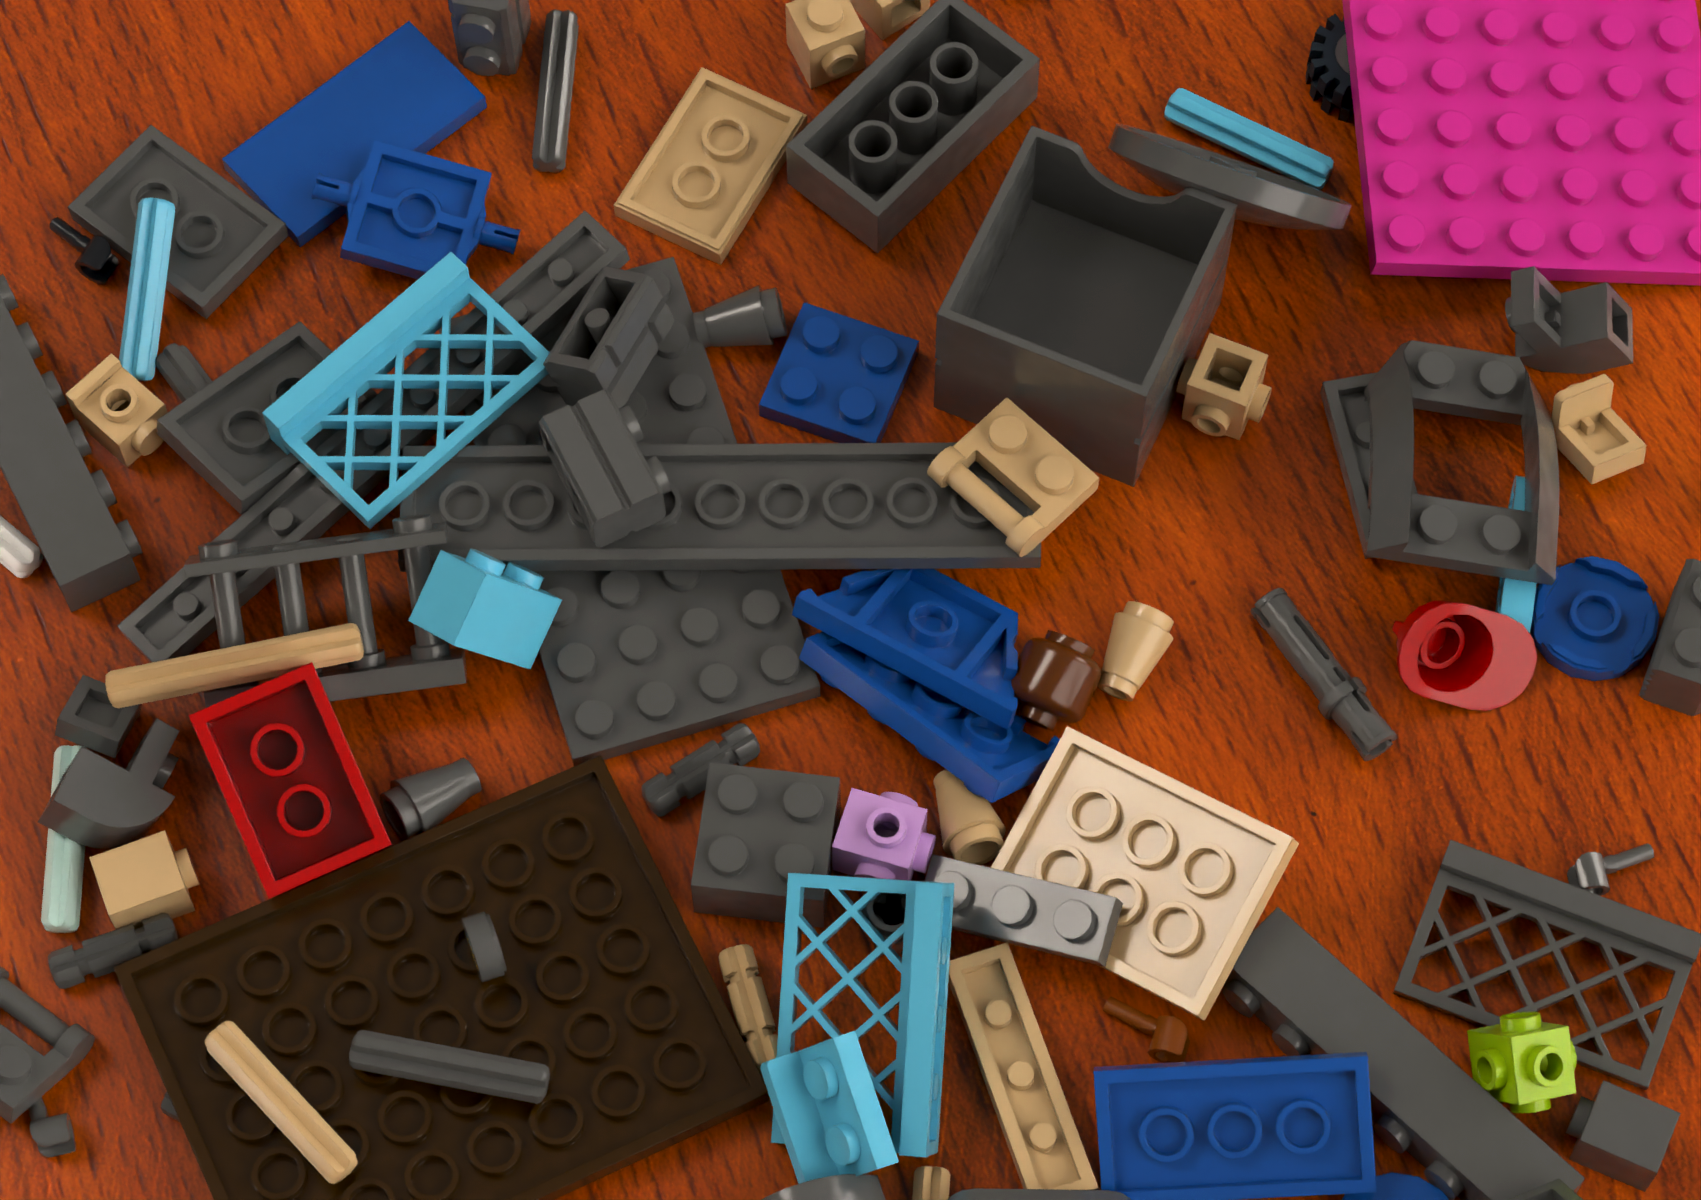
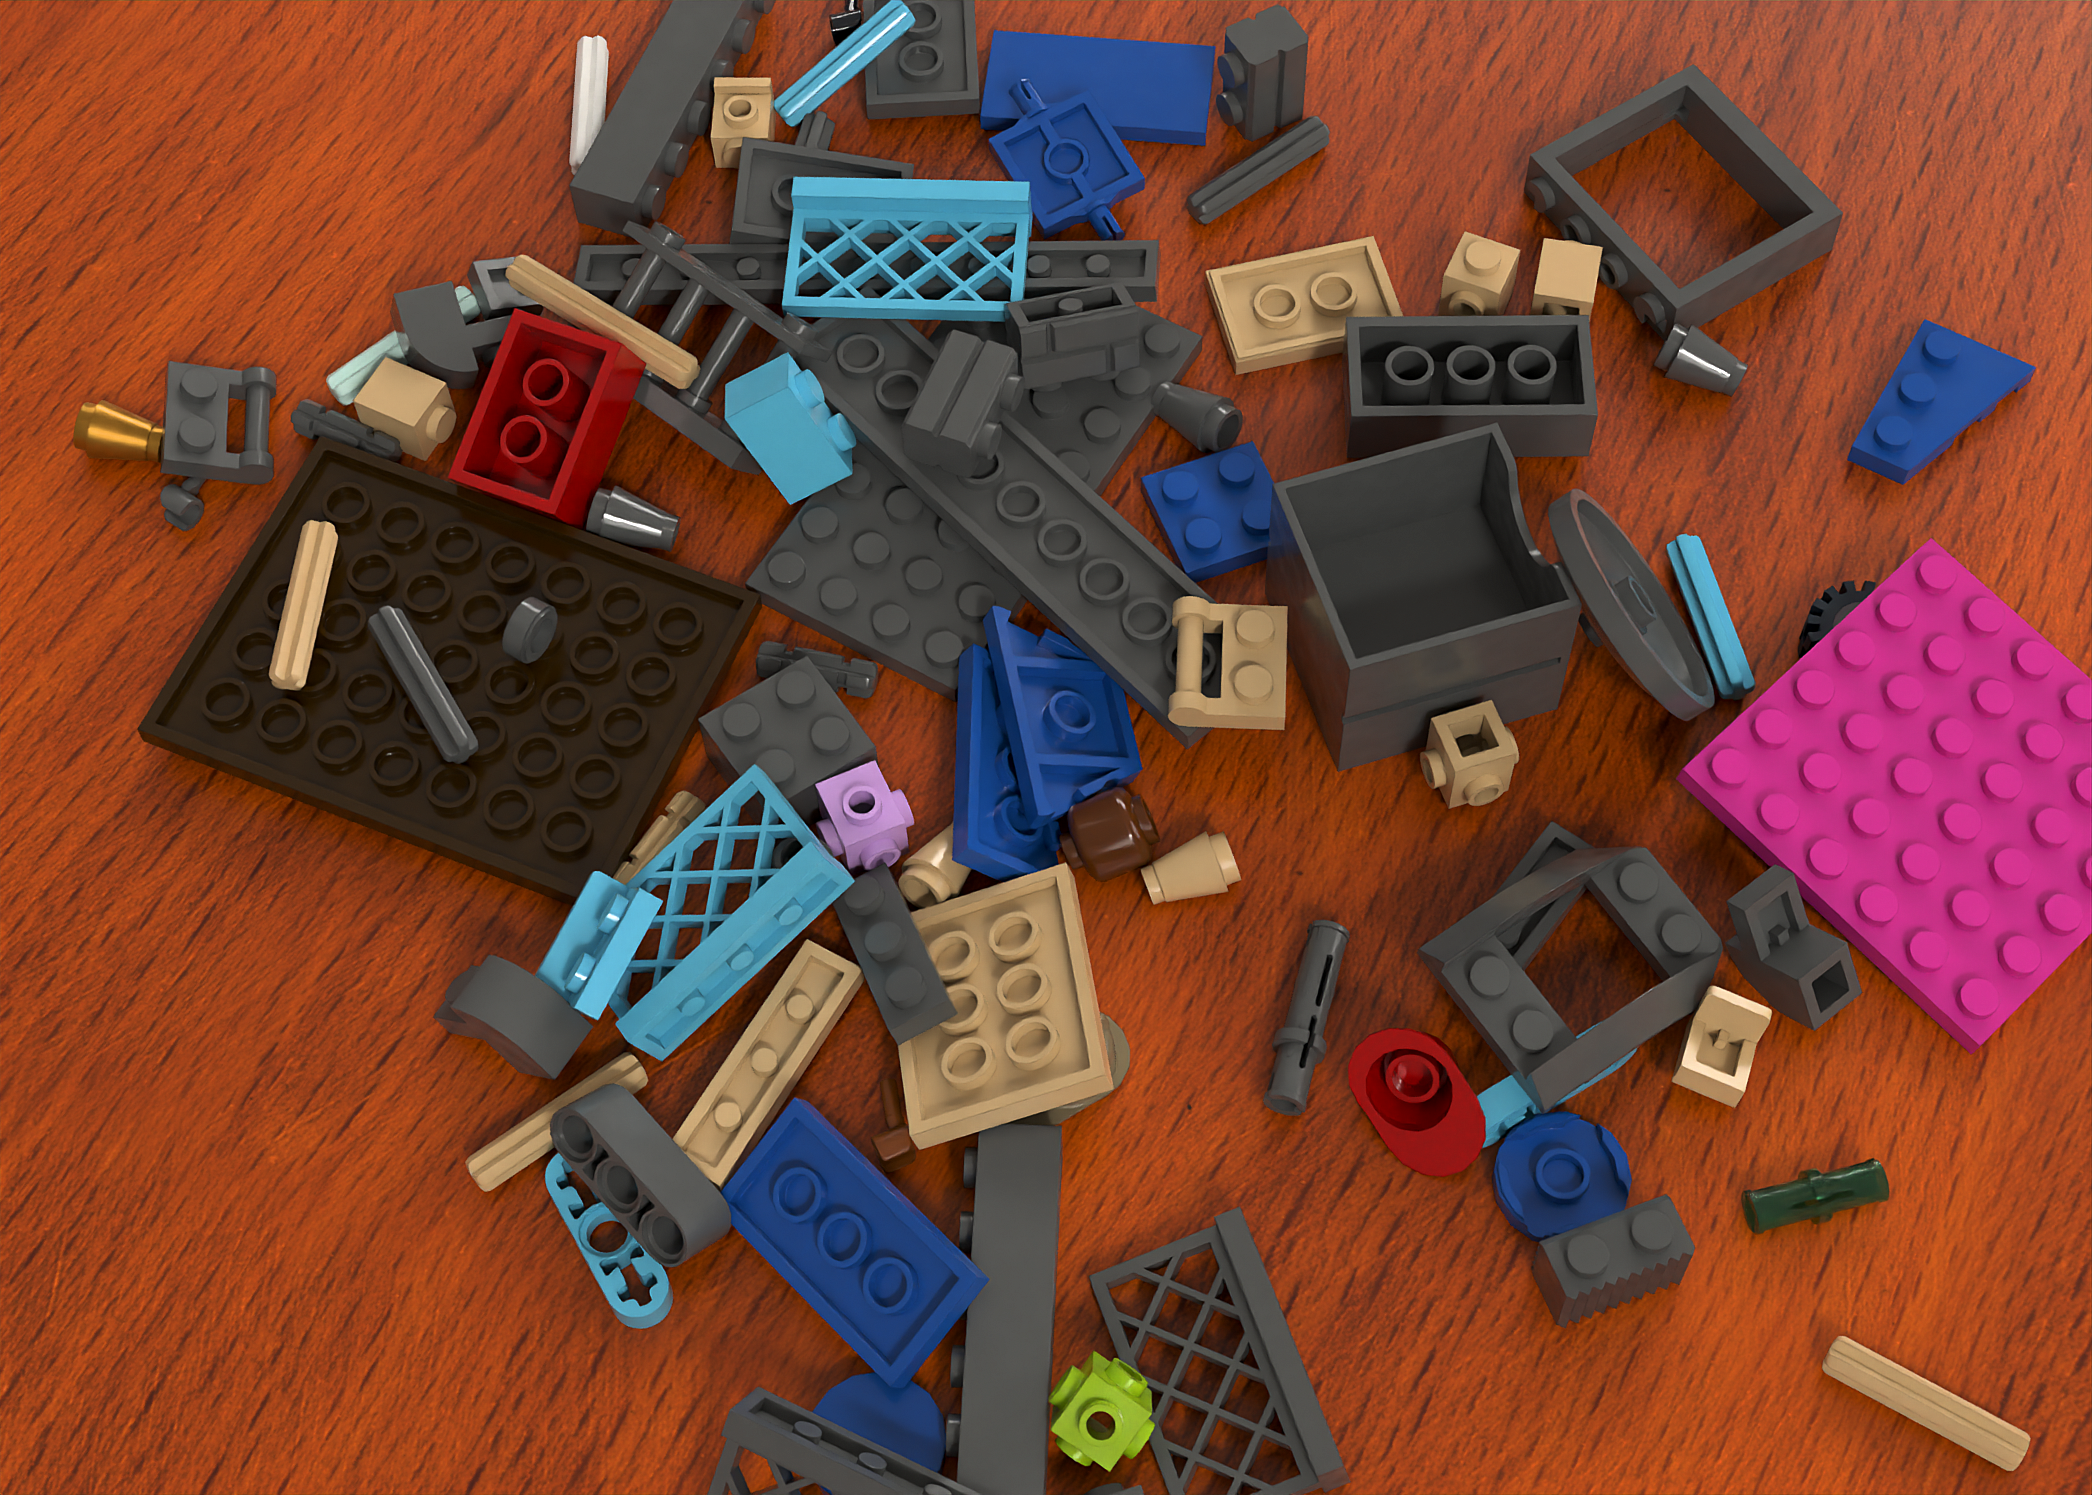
camera: 50 degrees right, 5 degrees down
(1592, 868) = (1333, 1344): dark grey hand -> none

